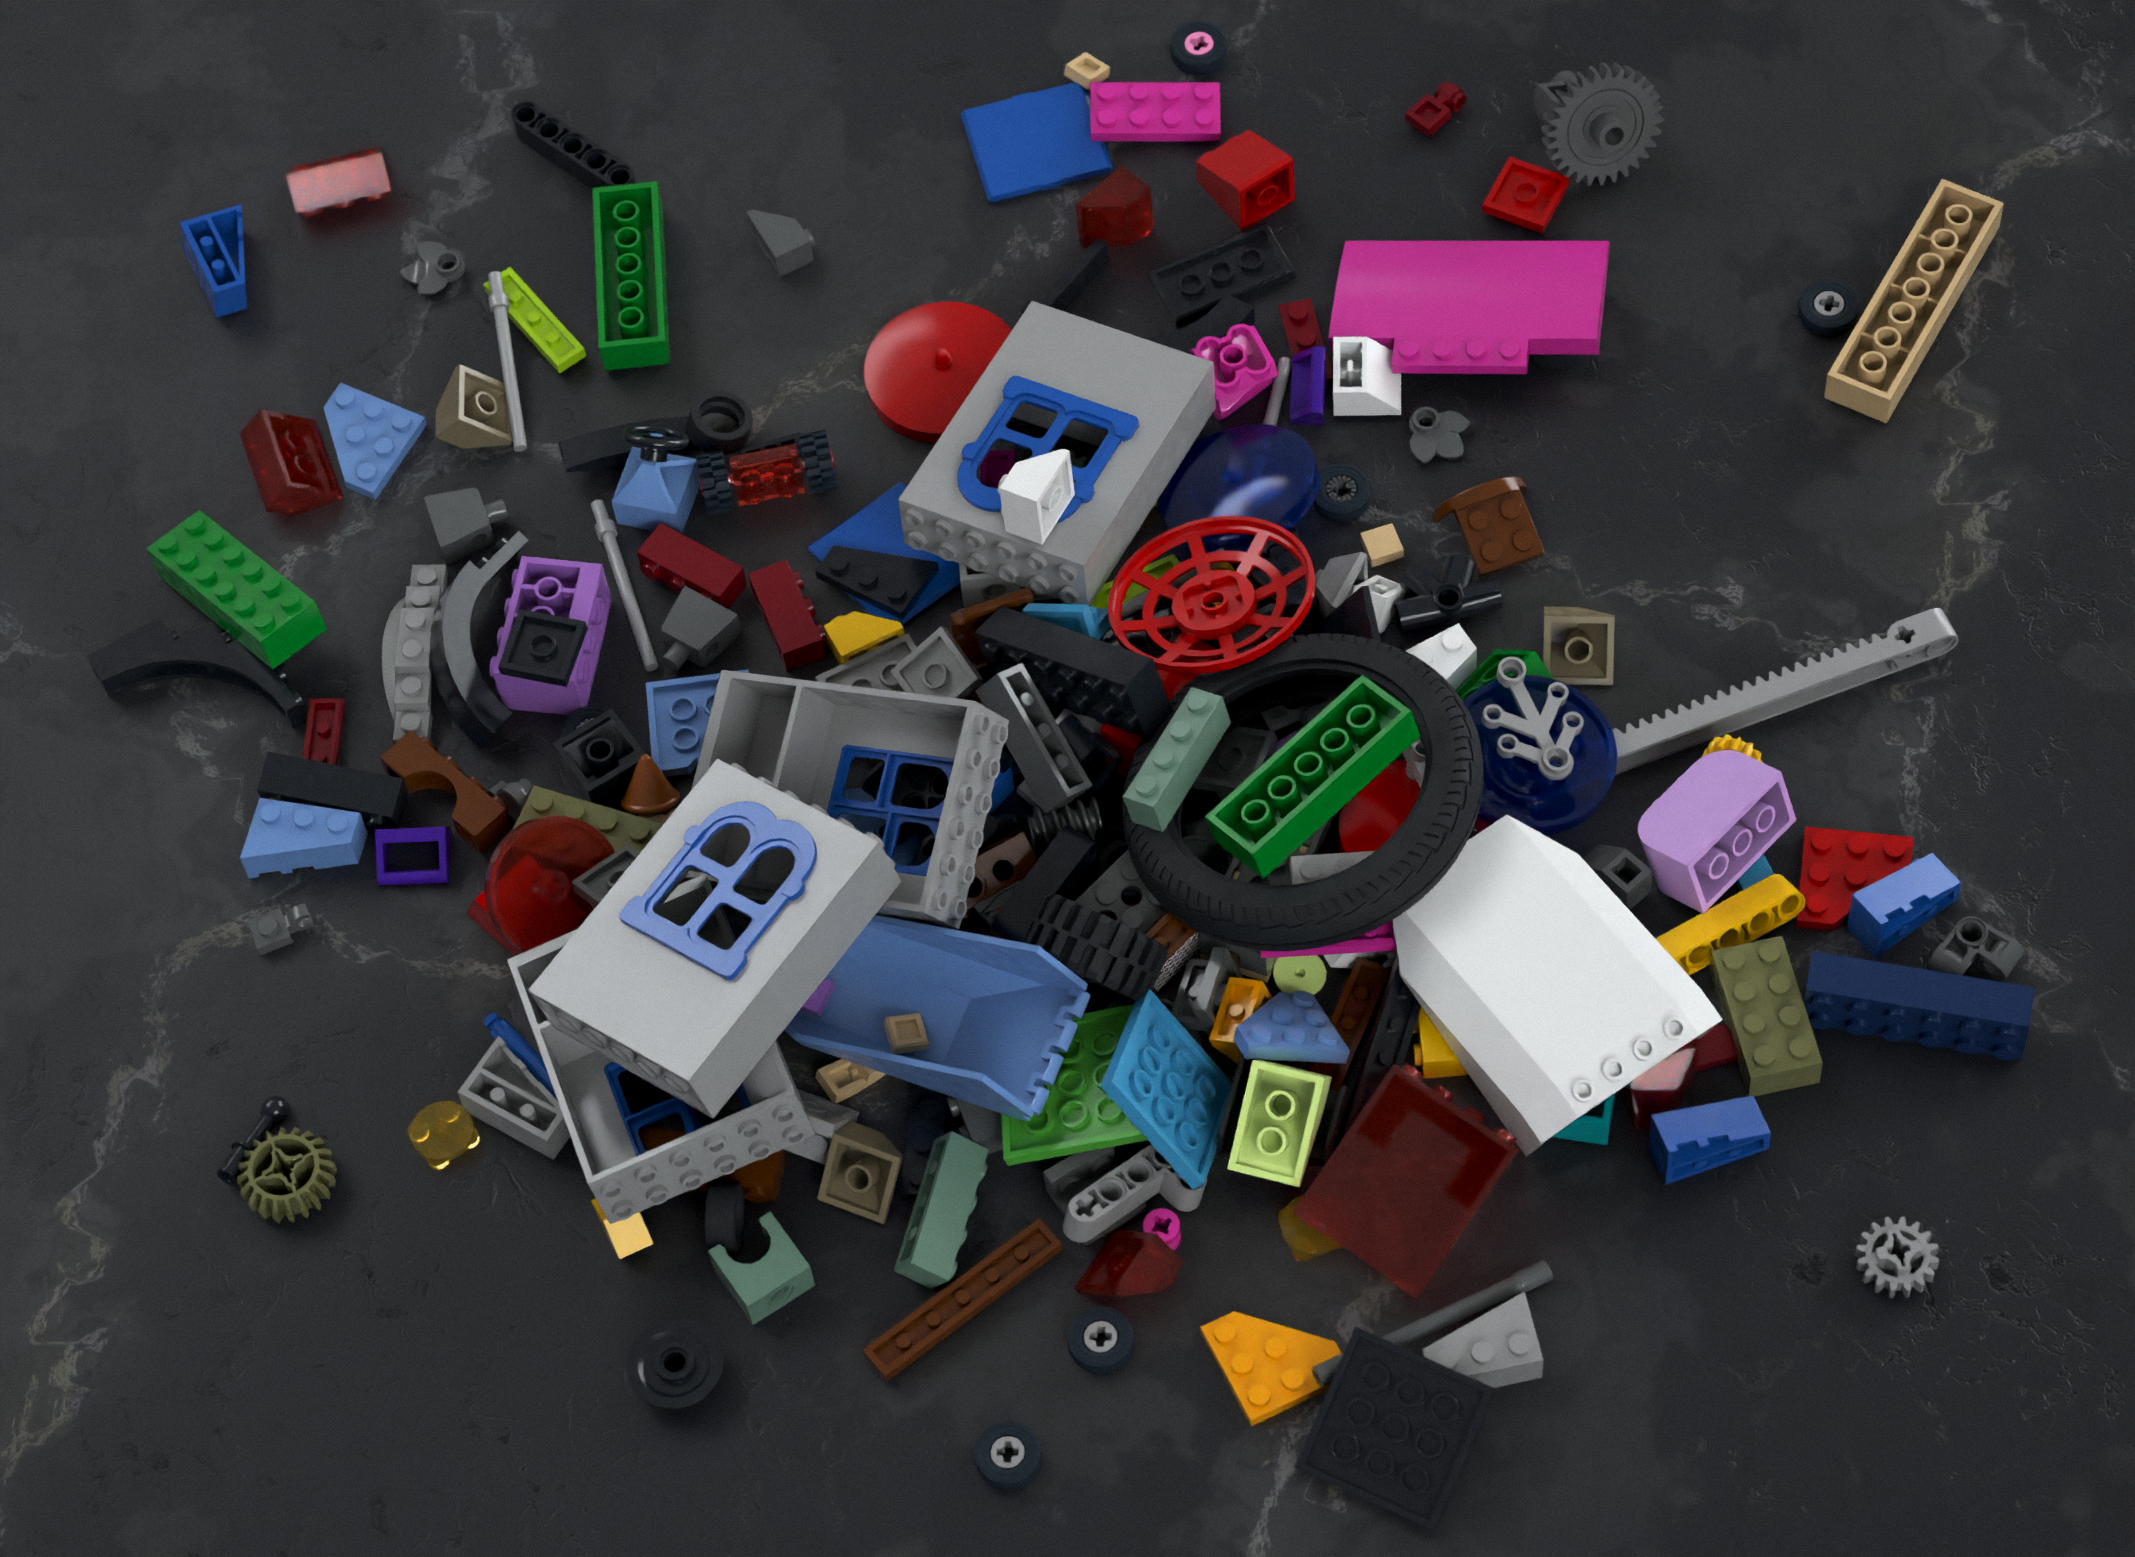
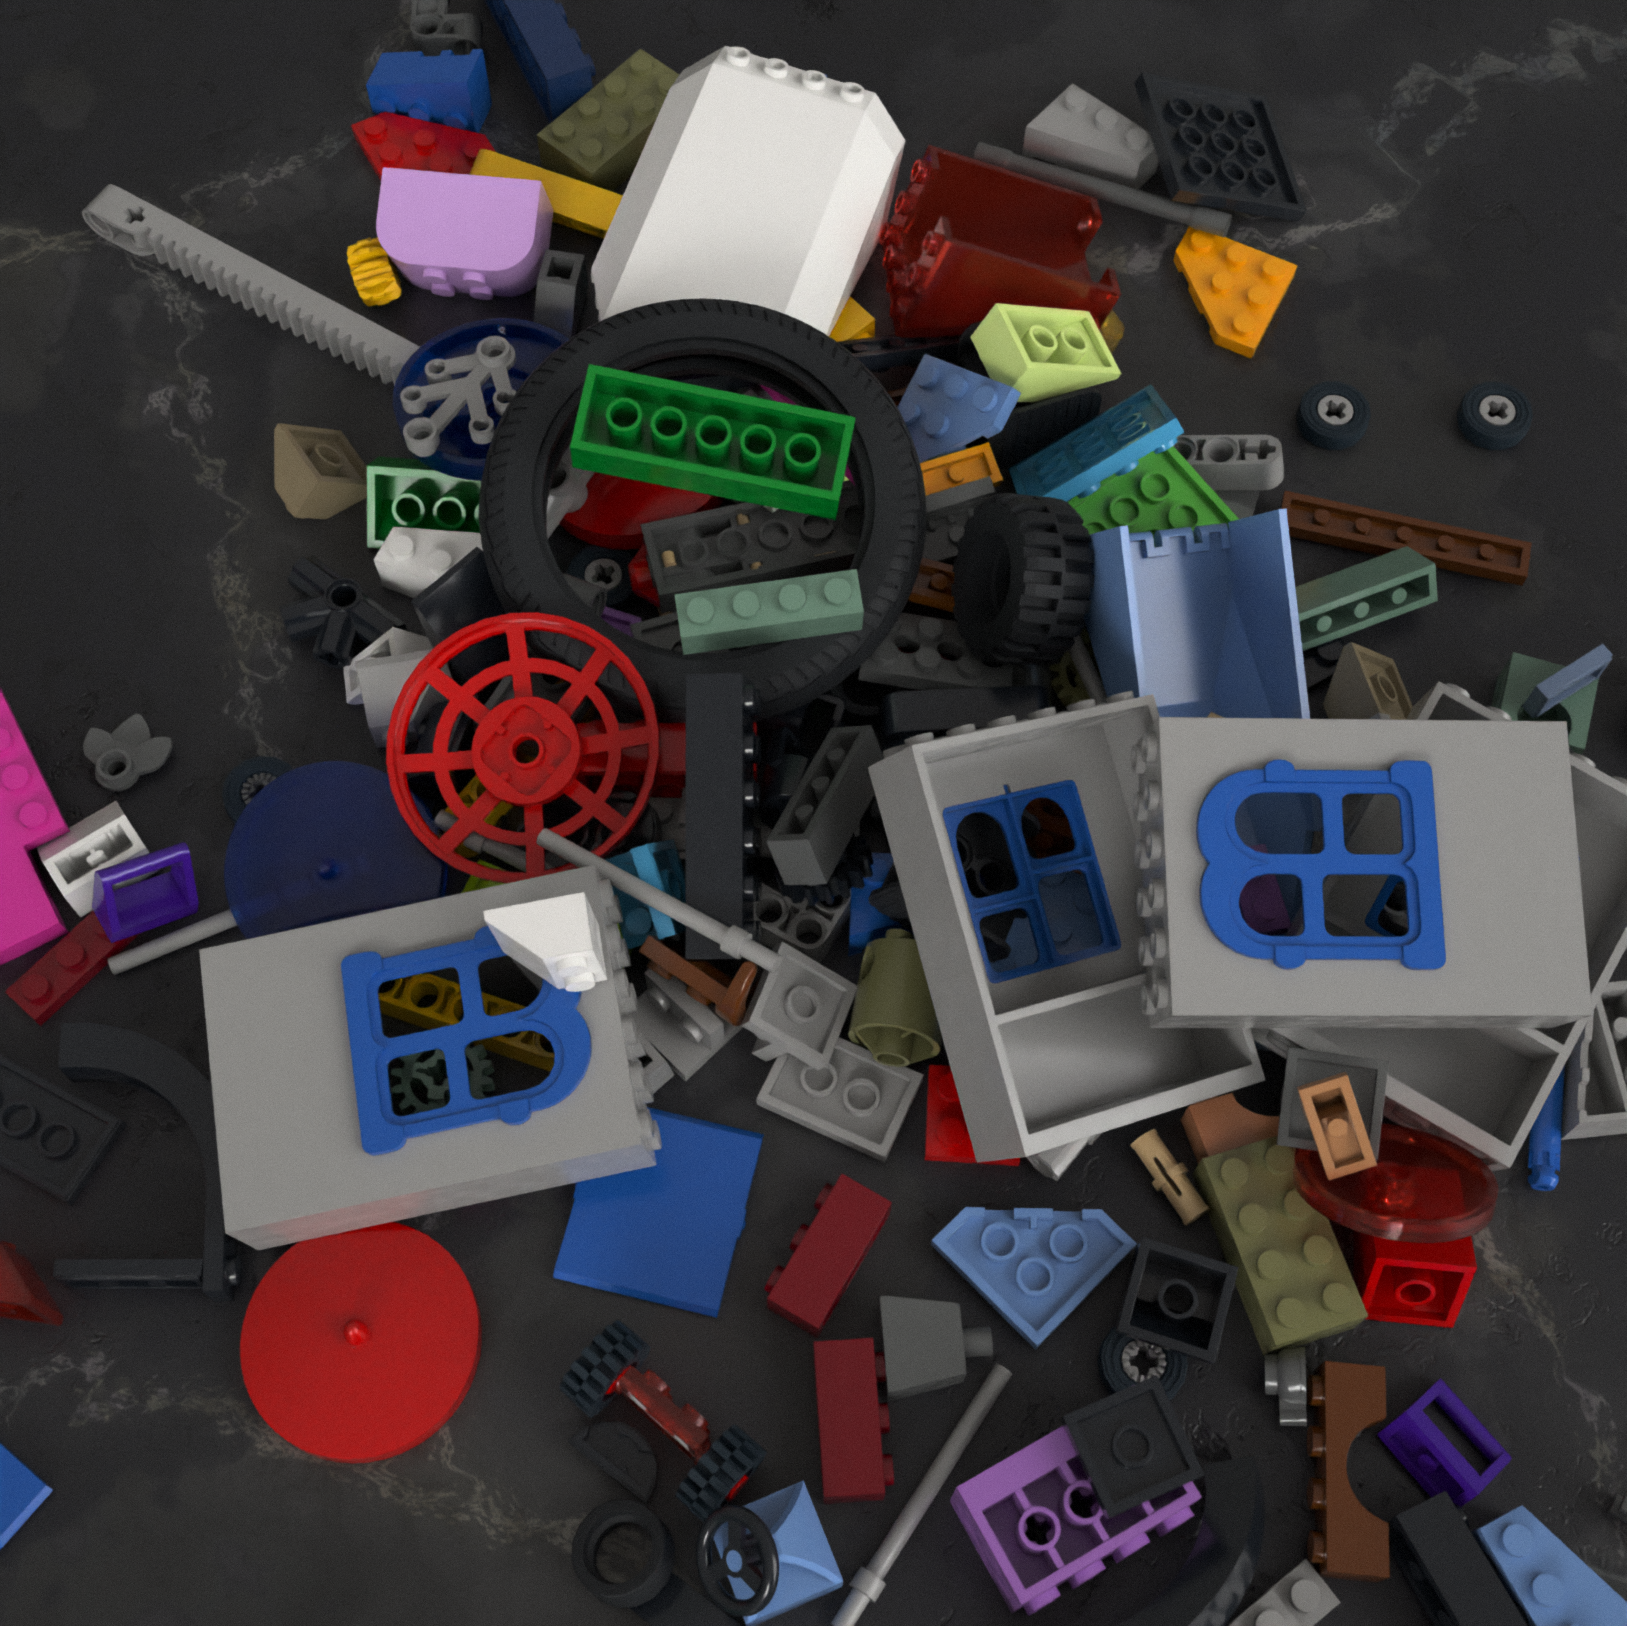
camera: 135 degrees left, 5 degrees up
(606, 849) = (1336, 1126): none -> medium nougat slope
(649, 790) = (1171, 1214): dark orange hat -> none
(755, 1263) = (1567, 681): none -> sand blue tile
(859, 633) = (800, 1147): yellow slope -> none
(878, 578) = (707, 1188): black wing -> none
(980, 620) = (732, 940): none -> light grey bar
(1131, 1266) = (1266, 411): clear red slope -> none
(1166, 1218) = (1203, 417): dark pink wheel -> none
(1240, 367) = (159, 989): dark pink piece -> none
(1382, 545) = (306, 718): tan tile -> none
(1494, 524) = (217, 622): reddish brown piece -> none

